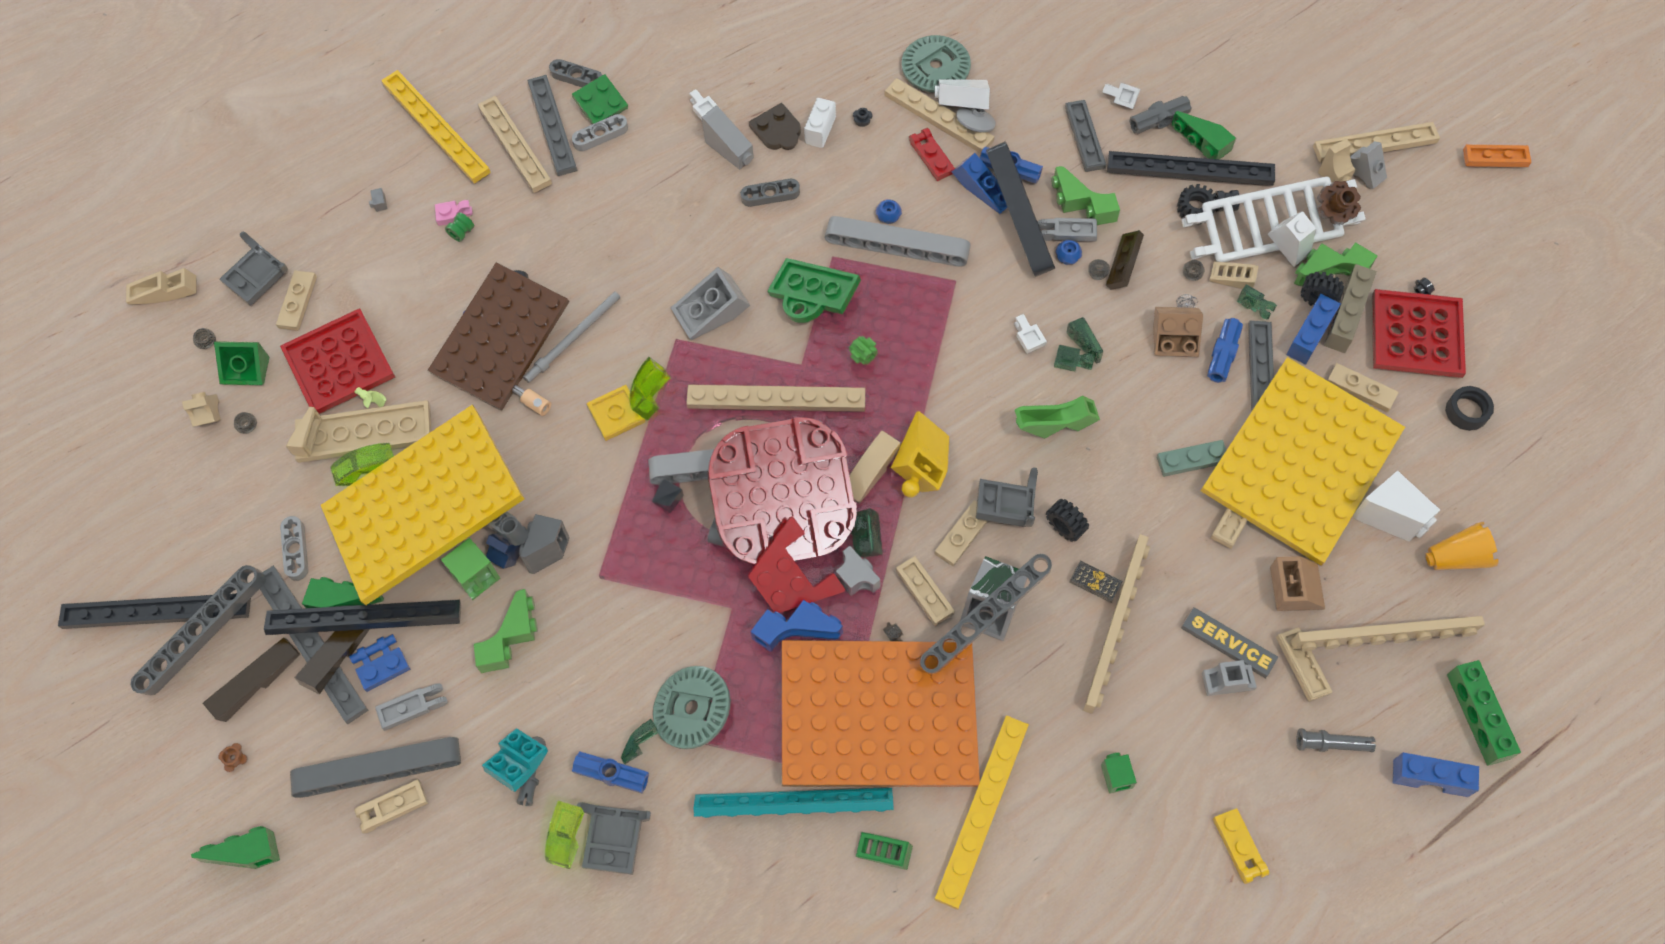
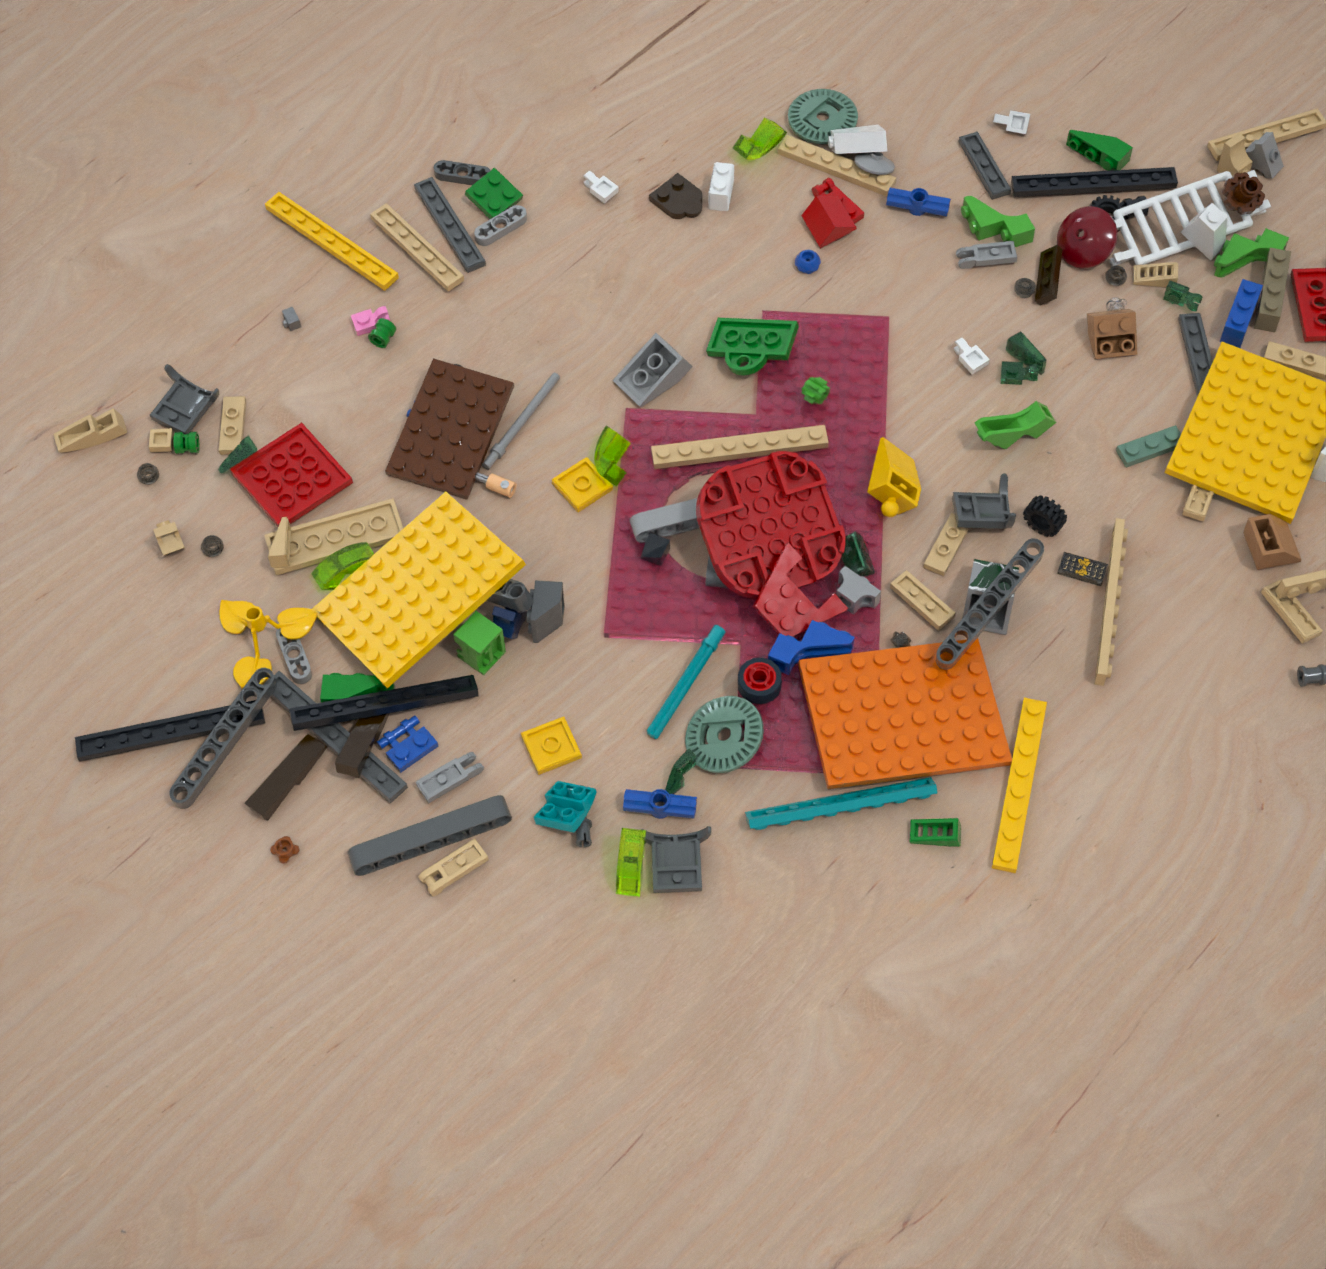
camera: 10 degrees left, 5 degrees down
(224, 306) = (161, 440): none -> tan plate
(241, 363) = (194, 490): green slope -> none
(246, 851) = (320, 929): green slope -> none
(247, 312) = (186, 442): none -> green wheel
(251, 503) = (241, 614): none -> yellow plant
(295, 329) = (241, 452): none -> clear green slope
(371, 396) = (335, 504): yellowish green piece -> none
(515, 629) = (536, 693): bright green arch -> none
(519, 688) = (551, 745): none -> yellow tile
(697, 608) = (707, 647): none -> teal axle
(726, 138) = (632, 213): light grey slope -> none
(732, 644) = (759, 669): none -> wheel
(774, 185) = (697, 250): dark grey beam -> none
(864, 120) = (761, 176): black plate -> none
(873, 80) = (762, 141): none -> clear neon green brick
(873, 465) = (850, 490): tan slope -> none
(897, 241) = (823, 287): light grey beam -> none
(917, 171) = (827, 219): none -> red slope
(981, 182) = (892, 221): blue slope -> none
(1020, 209) = (938, 240): black beam -> none
(1068, 257) = (992, 275): blue plate -> none
(1118, 772) = (1139, 730): green brick -> none
(1159, 114) = (1053, 136): dark grey piece -> none
(1178, 234) = (1095, 244): none -> dark red dish
(1225, 350) = (1161, 344): blue piece -> none
(1229, 642) = (1219, 603): dark grey tile -> none
(1229, 678) = (1225, 633): light grey brick -> none
(1240, 845) = (1264, 776): yellow plate -> none
(1321, 284) = (1236, 269): black tyre -> none

